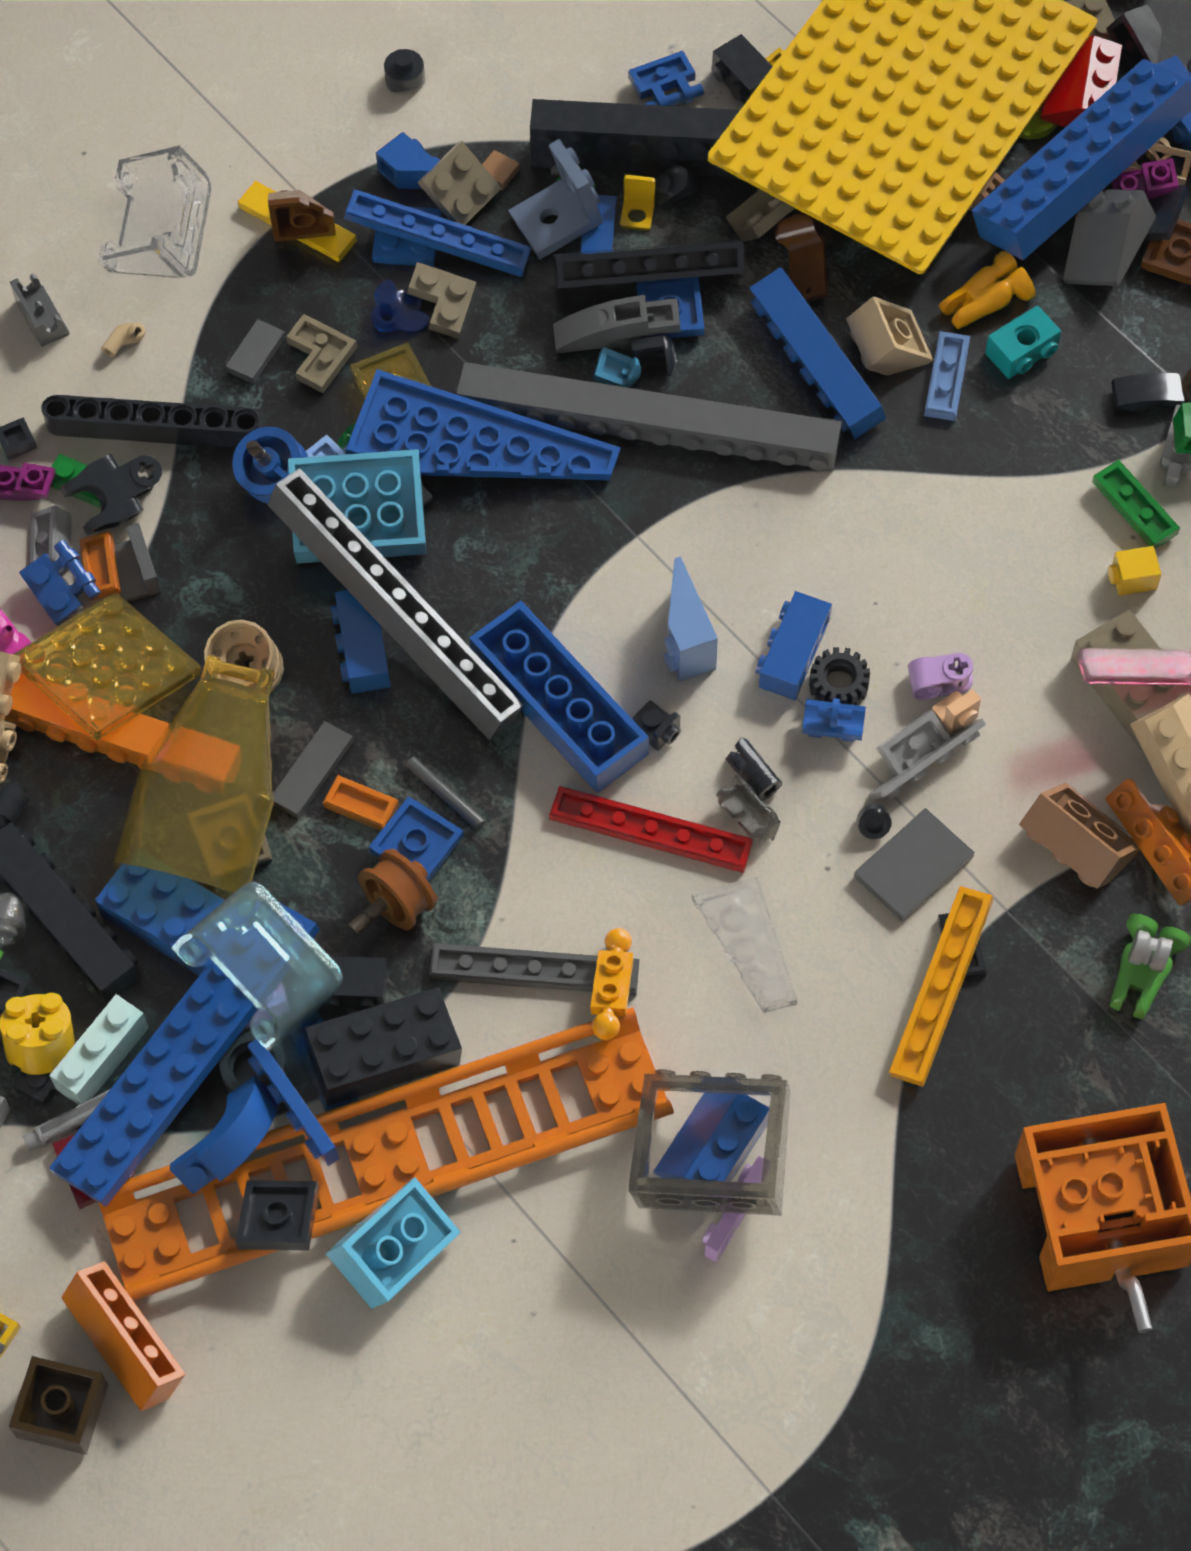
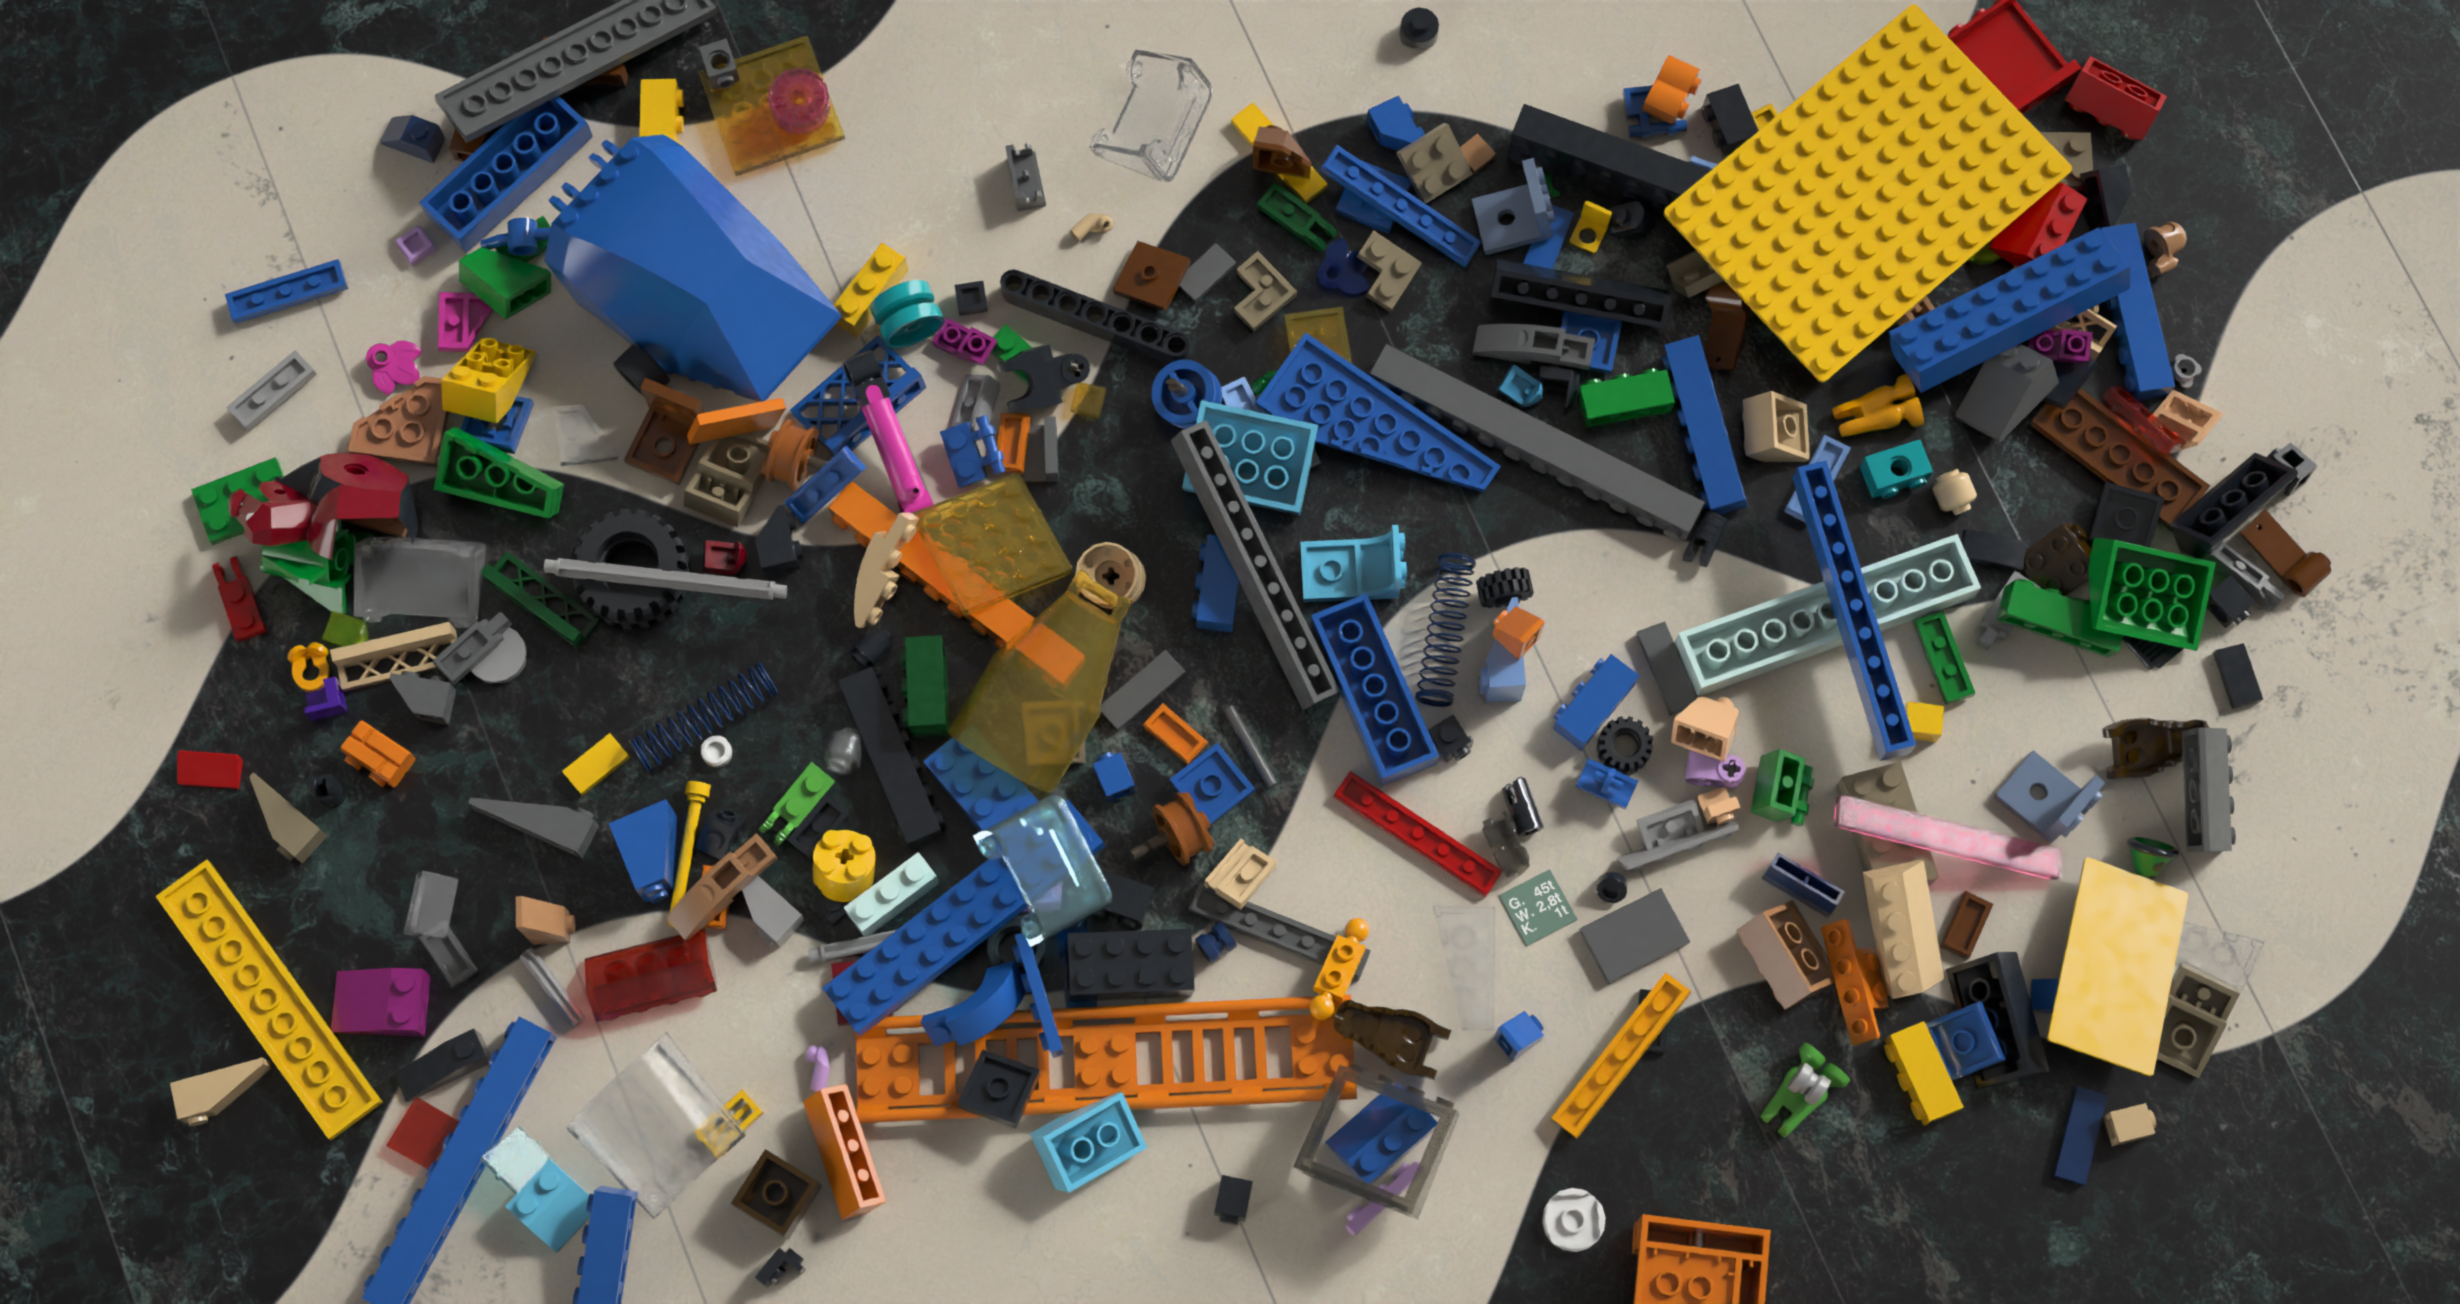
camera: 15 degrees right, 10 degrees up
(72, 1255) = (821, 1069): none -> lavender arm
(75, 827) = (925, 688): none -> dark green brick
(79, 1489) = (774, 1269): none -> black bracket
(169, 503) = (1088, 400): none -> clear yellow tile
(200, 367) = (1151, 276): none -> reddish brown plate
(307, 862) = (1113, 776): none -> blue brick
(333, 273) = (1295, 216): none -> dark green hinge
(469, 998) = (1215, 942): none -> dark blue wheel
(475, 920) = (1240, 874): none -> tan plate
(492, 586) = (1353, 567): none -> medium azure bracket
(572, 1259) = (1233, 1199): none -> black brick
(608, 561) = (1437, 692): none -> dark blue piece
(656, 558) = (1501, 586): none -> black tyre
(676, 56) = (1671, 90): none -> orange brick
(692, 582) = (1517, 630): none -> orange slope
(694, 1035) = (1393, 1035): none -> dark brown animal
(727, 350) = (1625, 397): none -> green brick
(802, 866) = (1538, 907): none -> sand green sticker
(825, 997) = (1519, 1035): none -> slope
(853, 457) = (1707, 534): none -> black hinge
(857, 594) = (1667, 667): none -> dark grey tile
(918, 634) = (1707, 727): none -> light nougat torso
(948, 1172) = (1573, 1220): none -> white tile
(1001, 495) = (1805, 623): none -> light aqua brick
(1016, 672) = (1782, 787): none -> green brick
(1031, 474) = (1853, 611): none -> blue brick
(1072, 762) = (1803, 885): none -> dark blue piece
(1089, 347) = (1954, 491): none -> tan head

